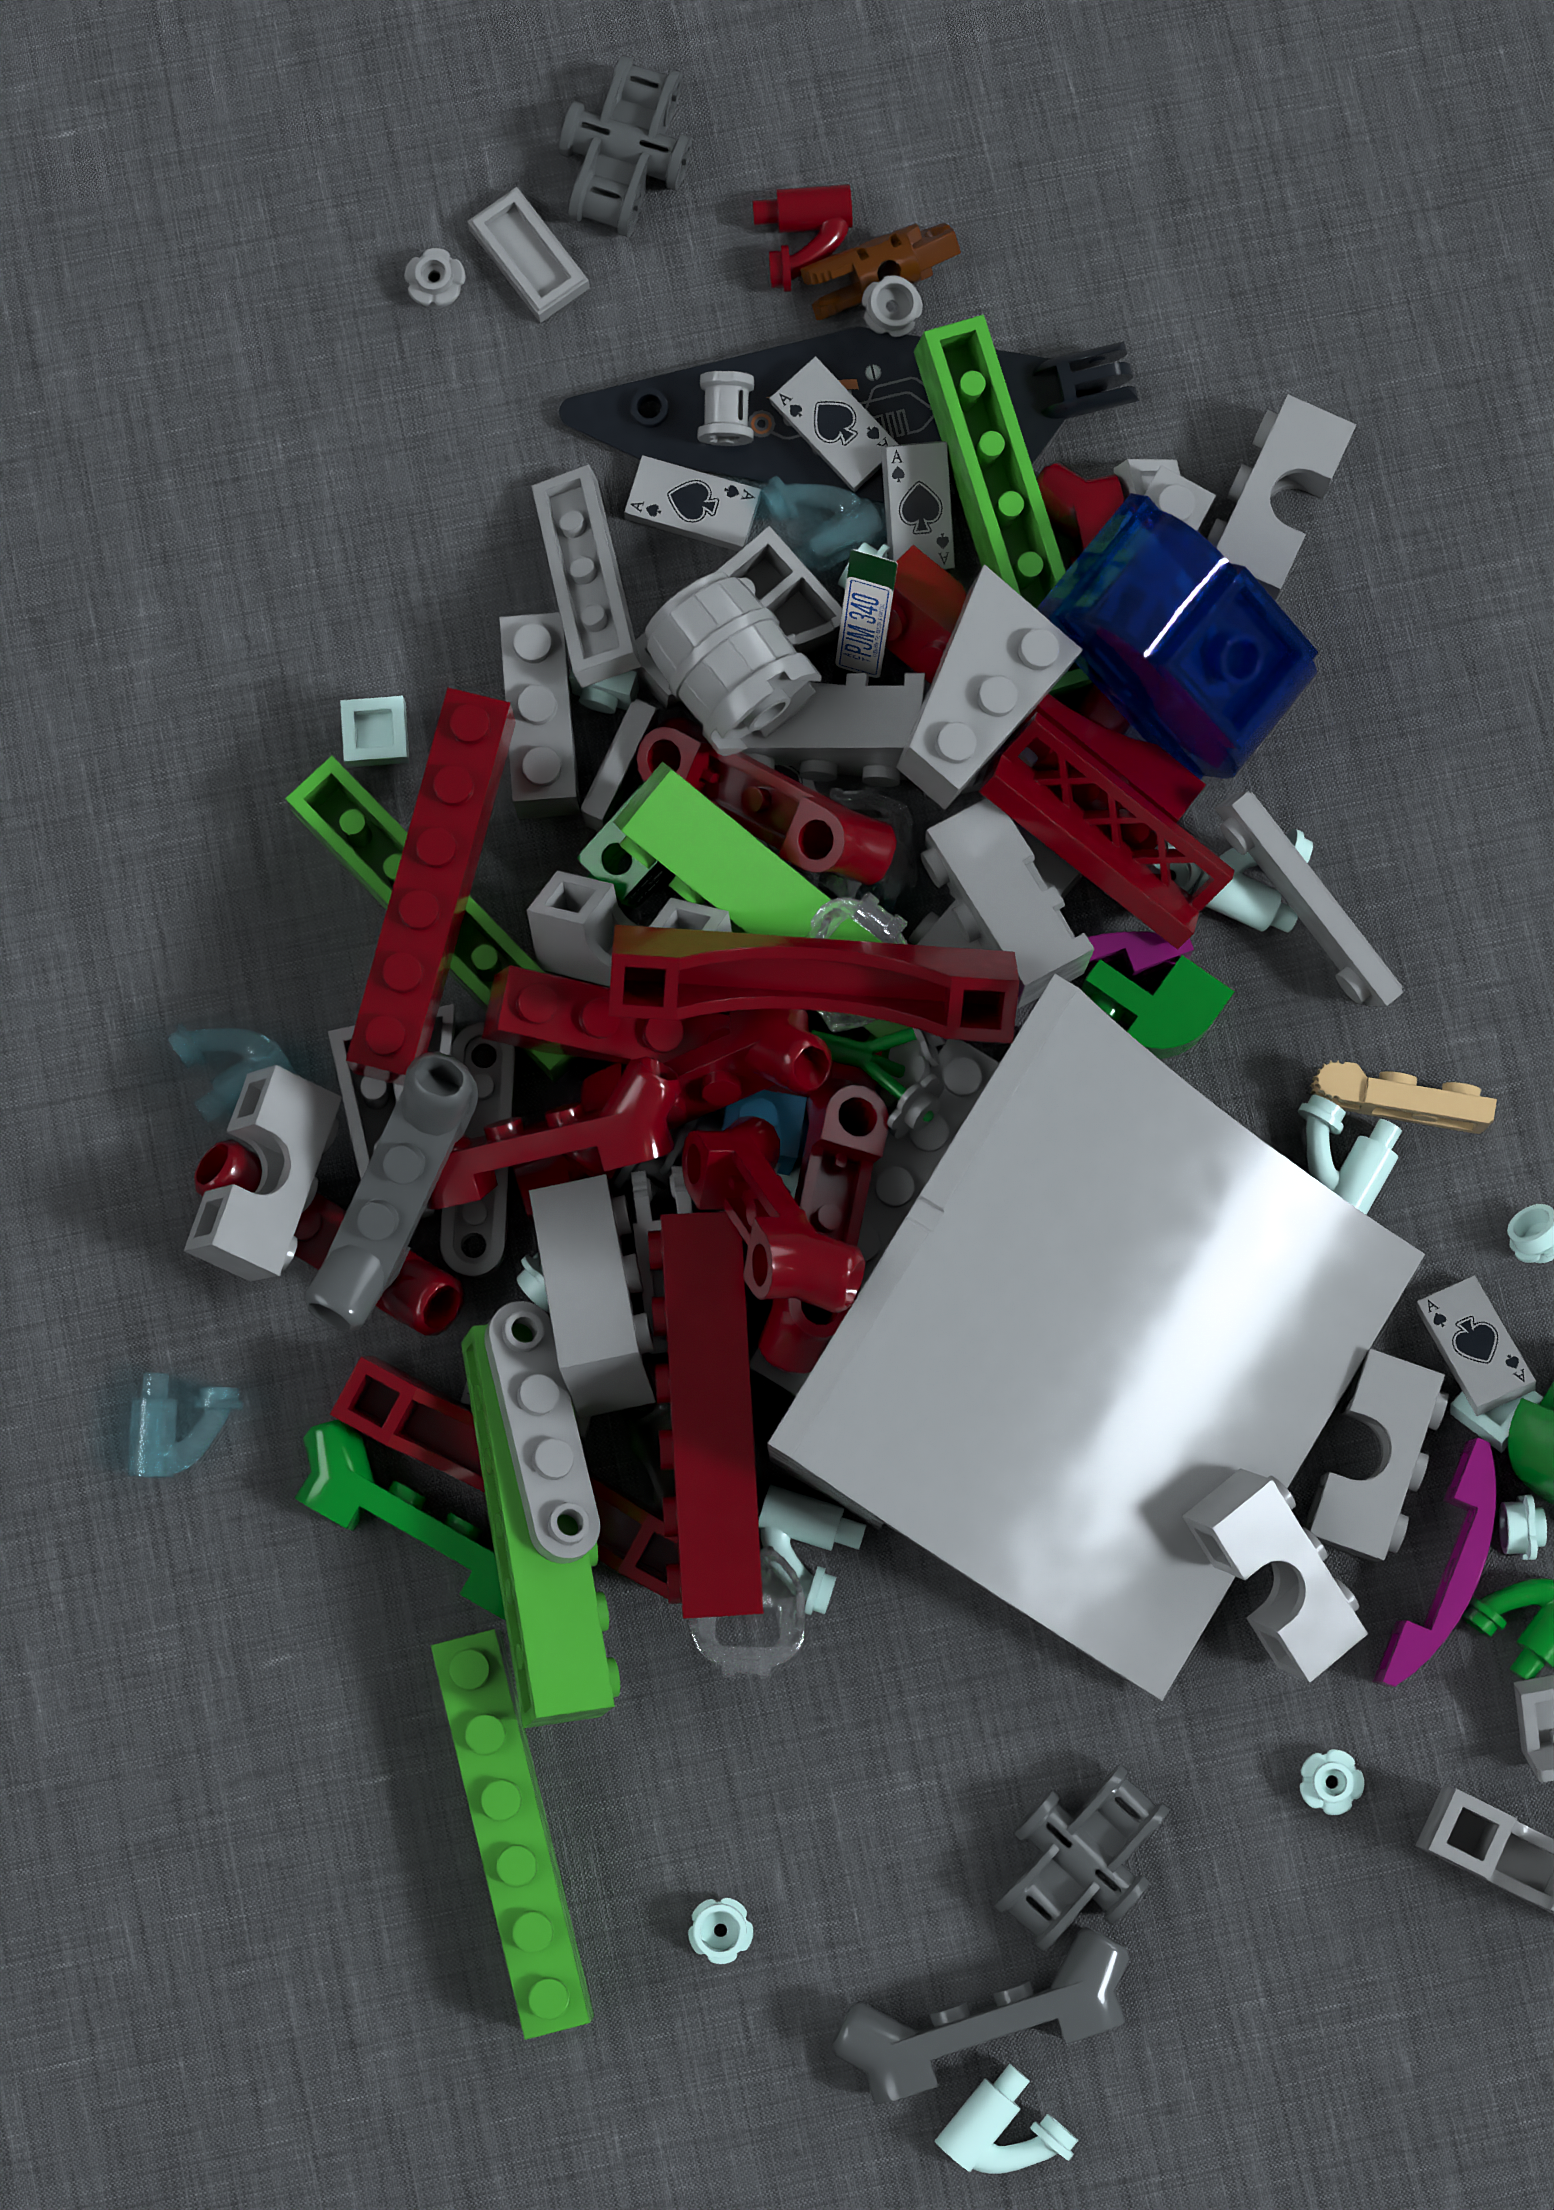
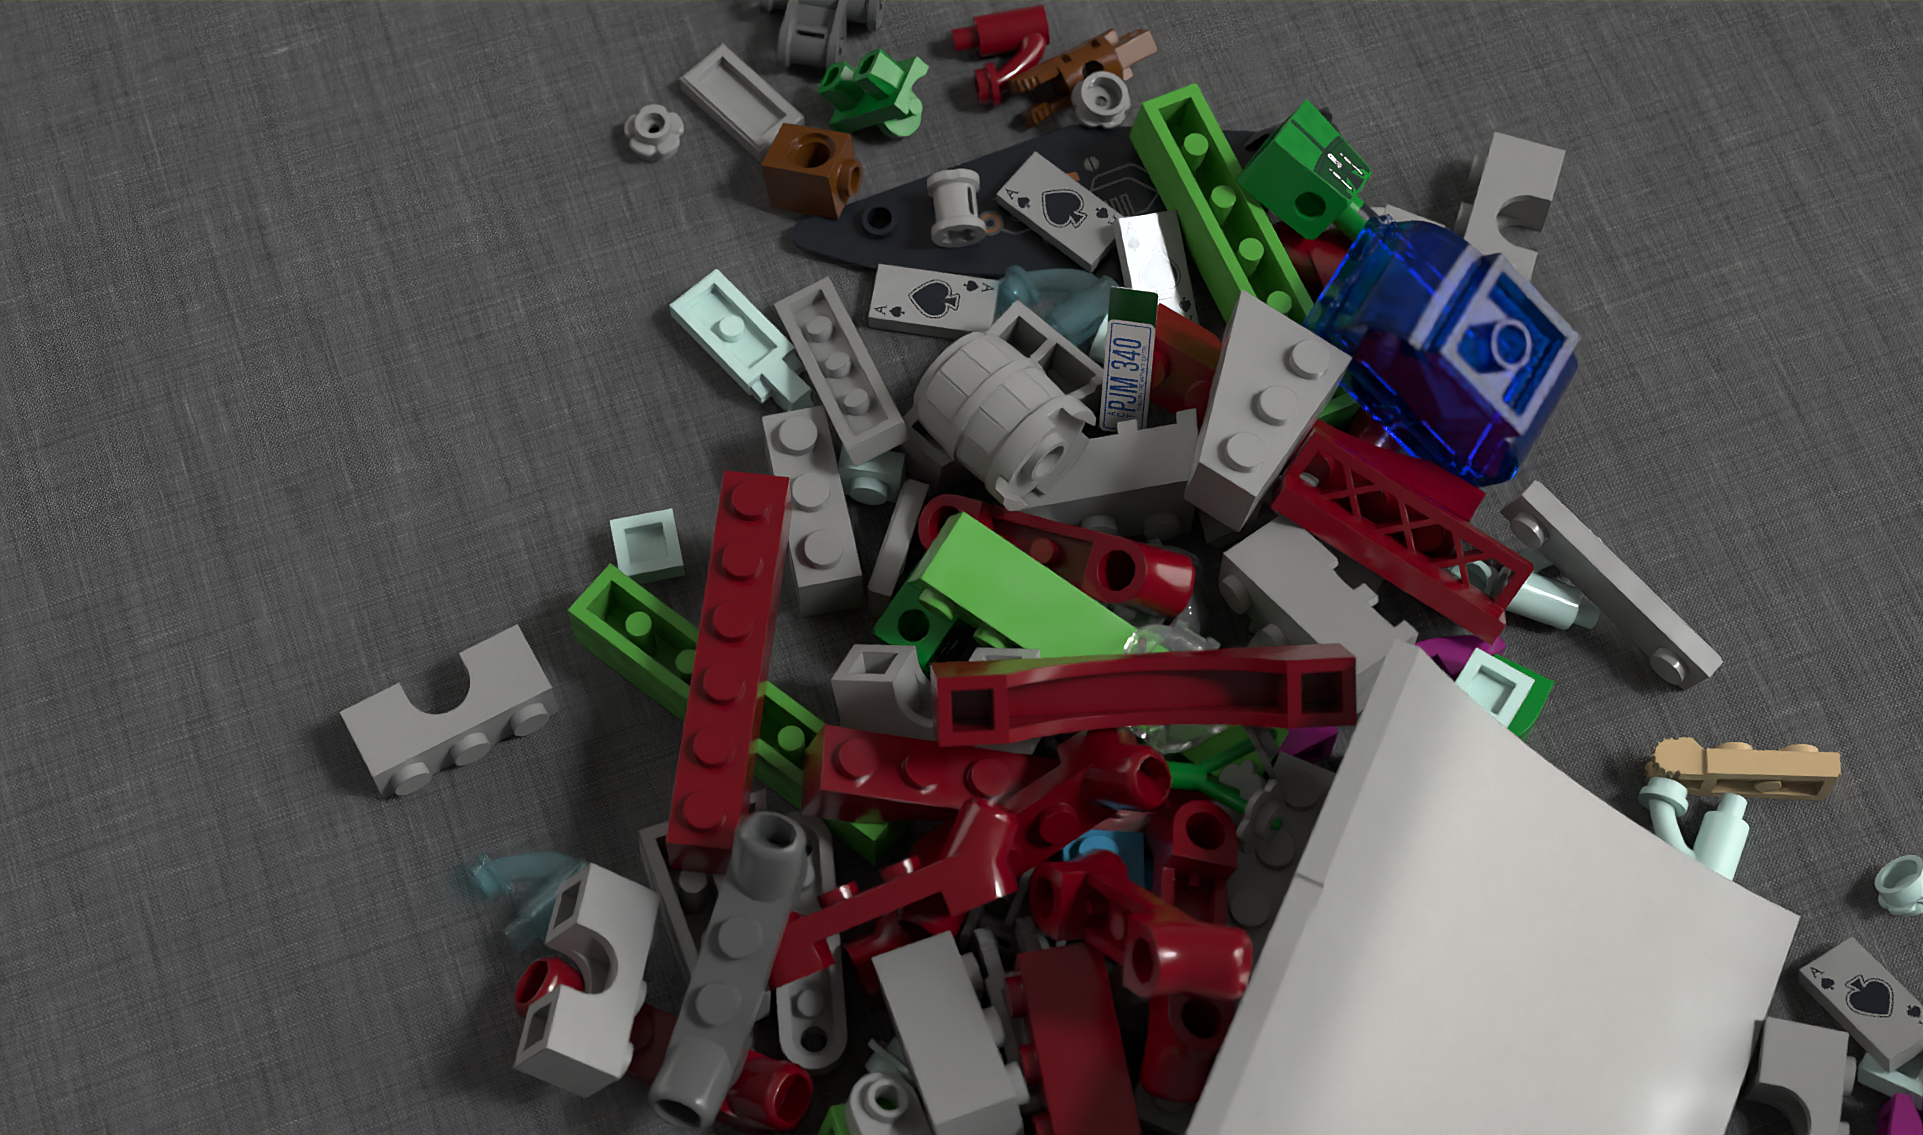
camera: 10 degrees left, 15 degrees down
(218, 869) = (409, 746): none -> light grey arch
(494, 523) = (742, 342): none -> light aqua hinge
(573, 330) = (811, 170): none -> reddish brown brick
(661, 270) = (874, 94): none -> green hips
(1084, 429) = (1309, 176): none -> green torso
(1163, 1000) = (1494, 686): none -> light aqua plate

